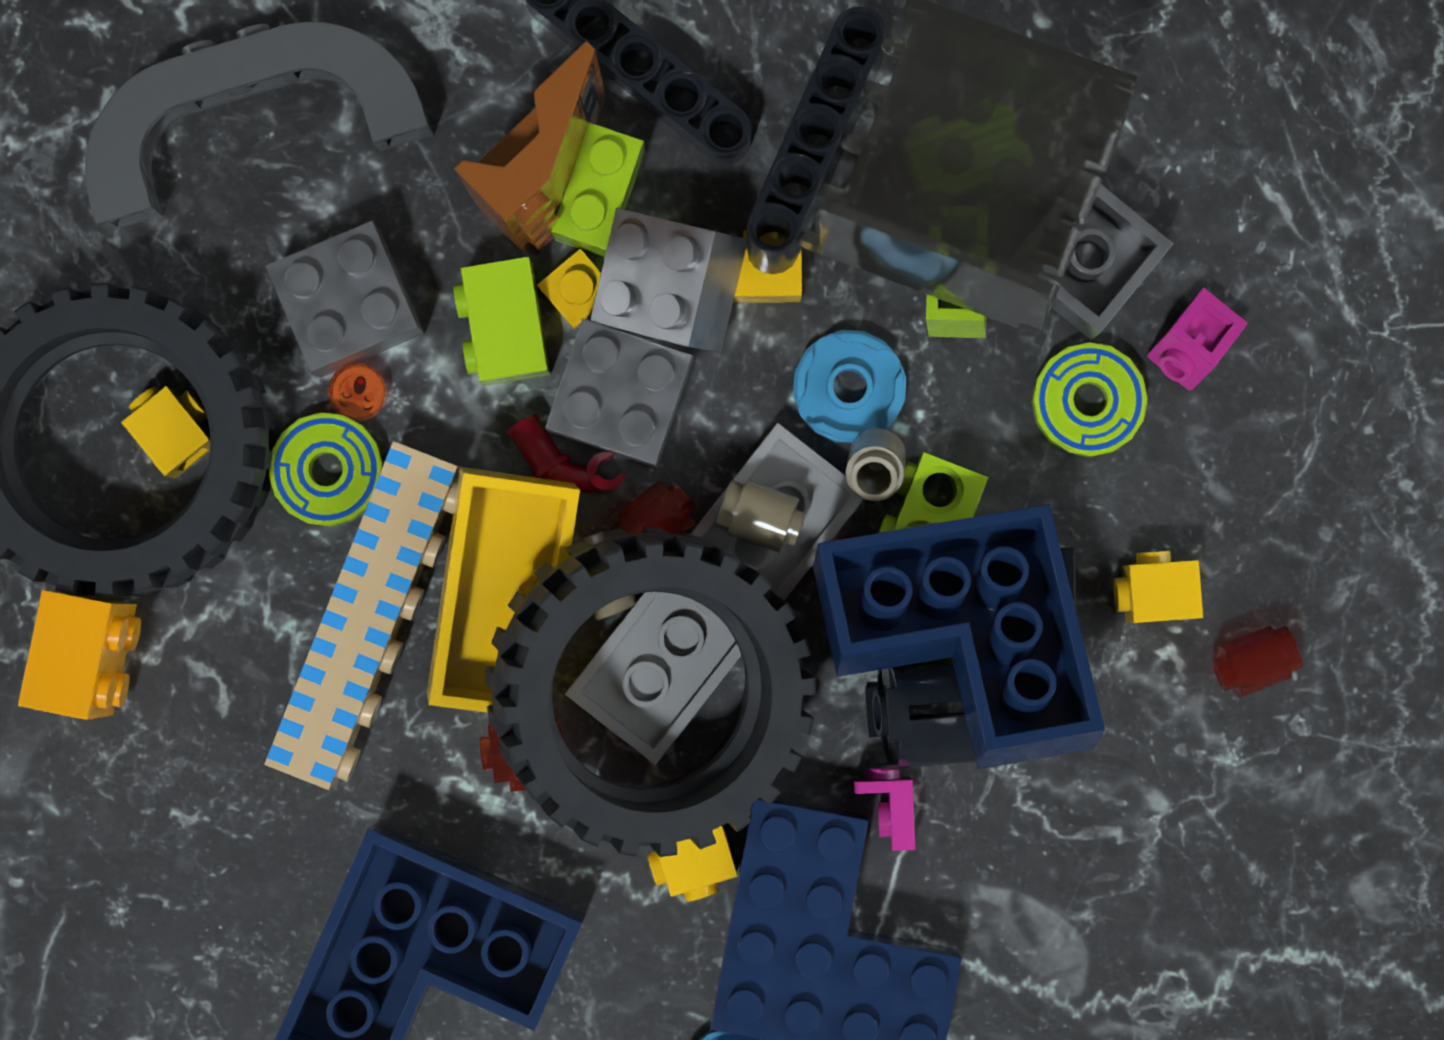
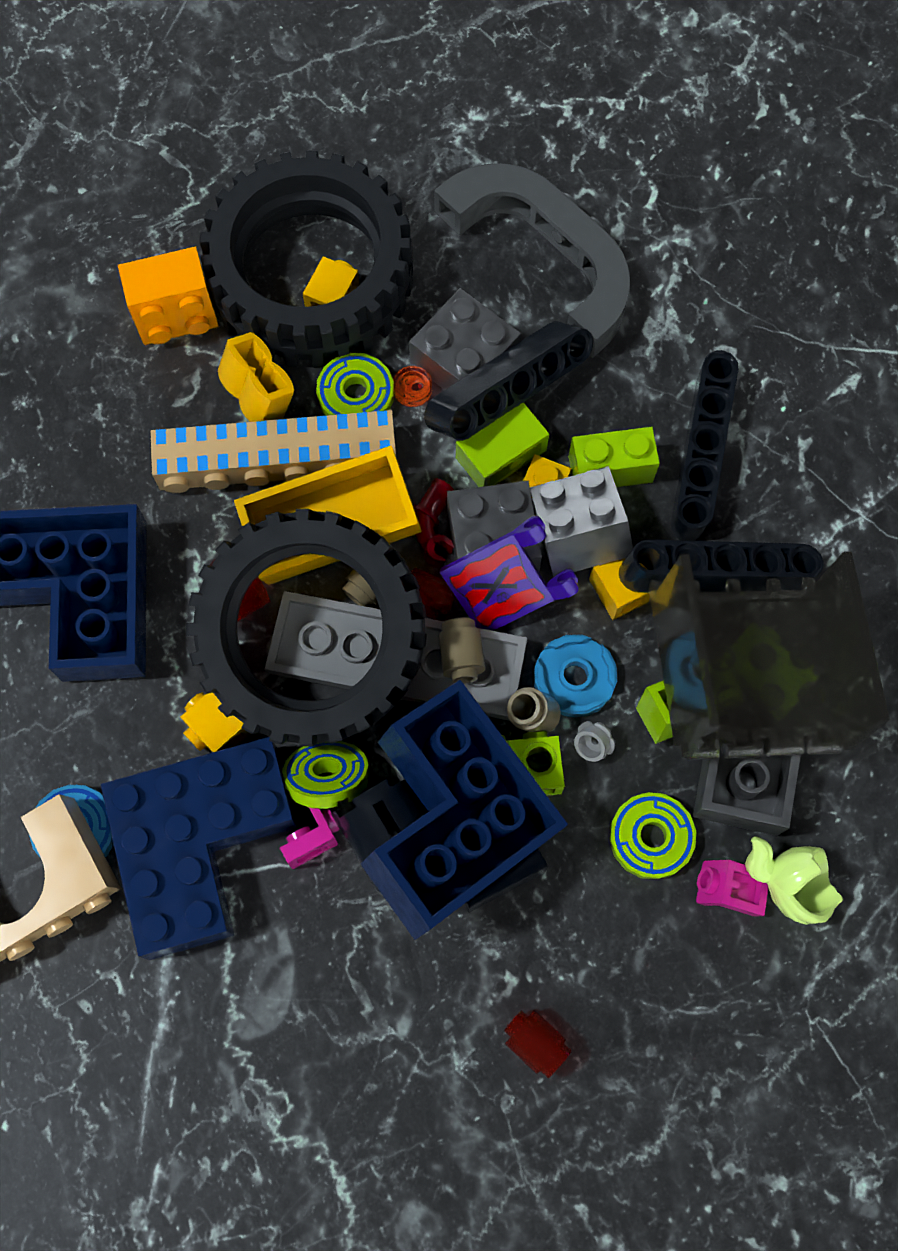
camera: 60 degrees right, 15 degrees down
(246, 598) = (254, 379): none -> yellow brick
(431, 270) = (508, 380): none -> black beam
(529, 169) = (616, 395): dark orange piece -> none
(698, 415) = (501, 580): none -> flag
(854, 759) = (320, 792): none -> lime tile
(945, 409) = (588, 746): none -> light grey plate
(1158, 589) = (550, 945): yellow brick -> none
(1232, 265) = (795, 880): none -> yellowish green hair

